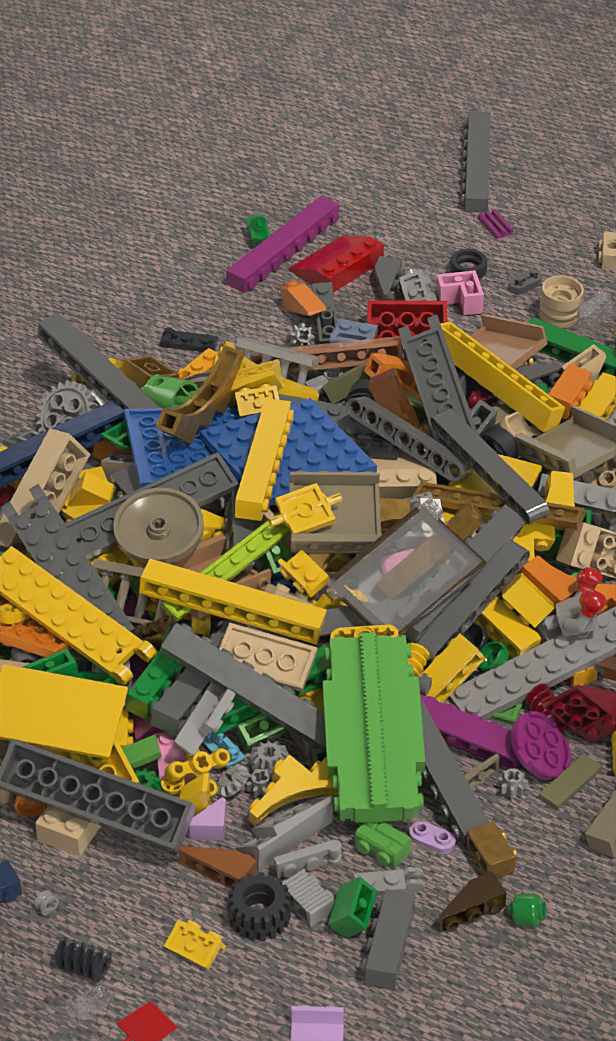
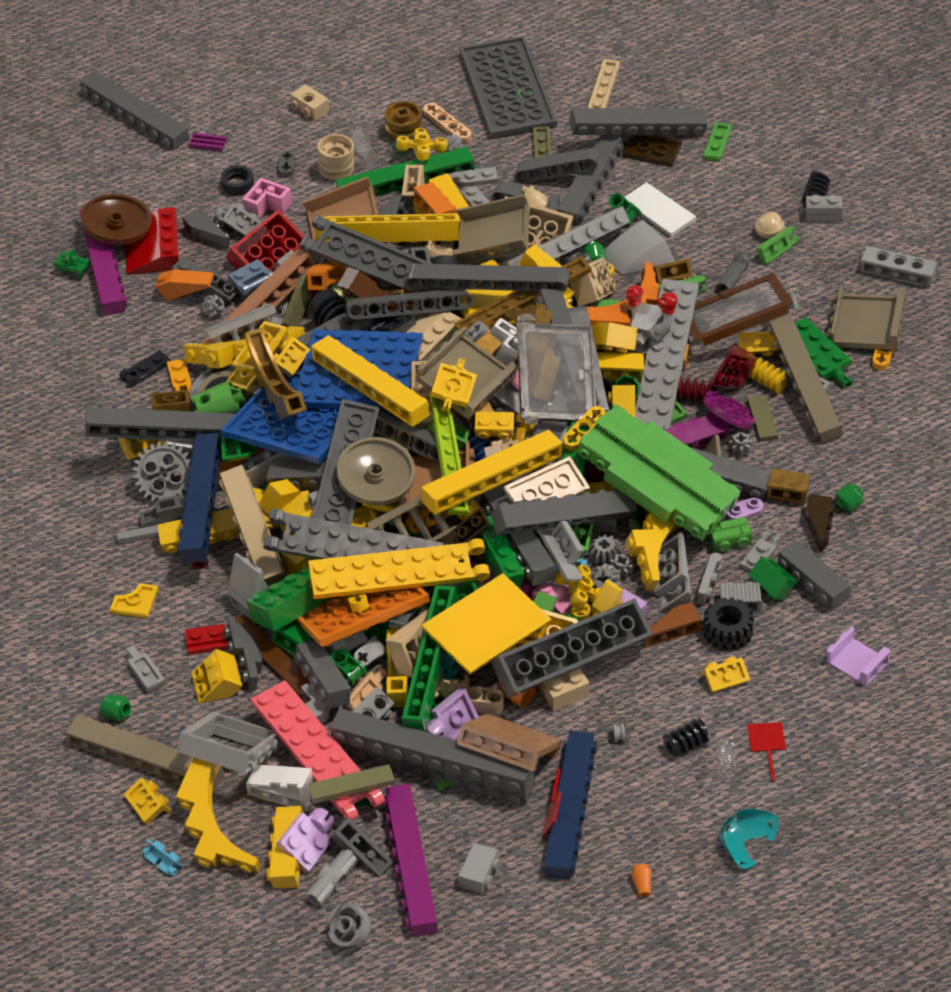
camera: 50 degrees left, 5 degrees up
(326, 219) = (116, 219): none -> reddish brown dish

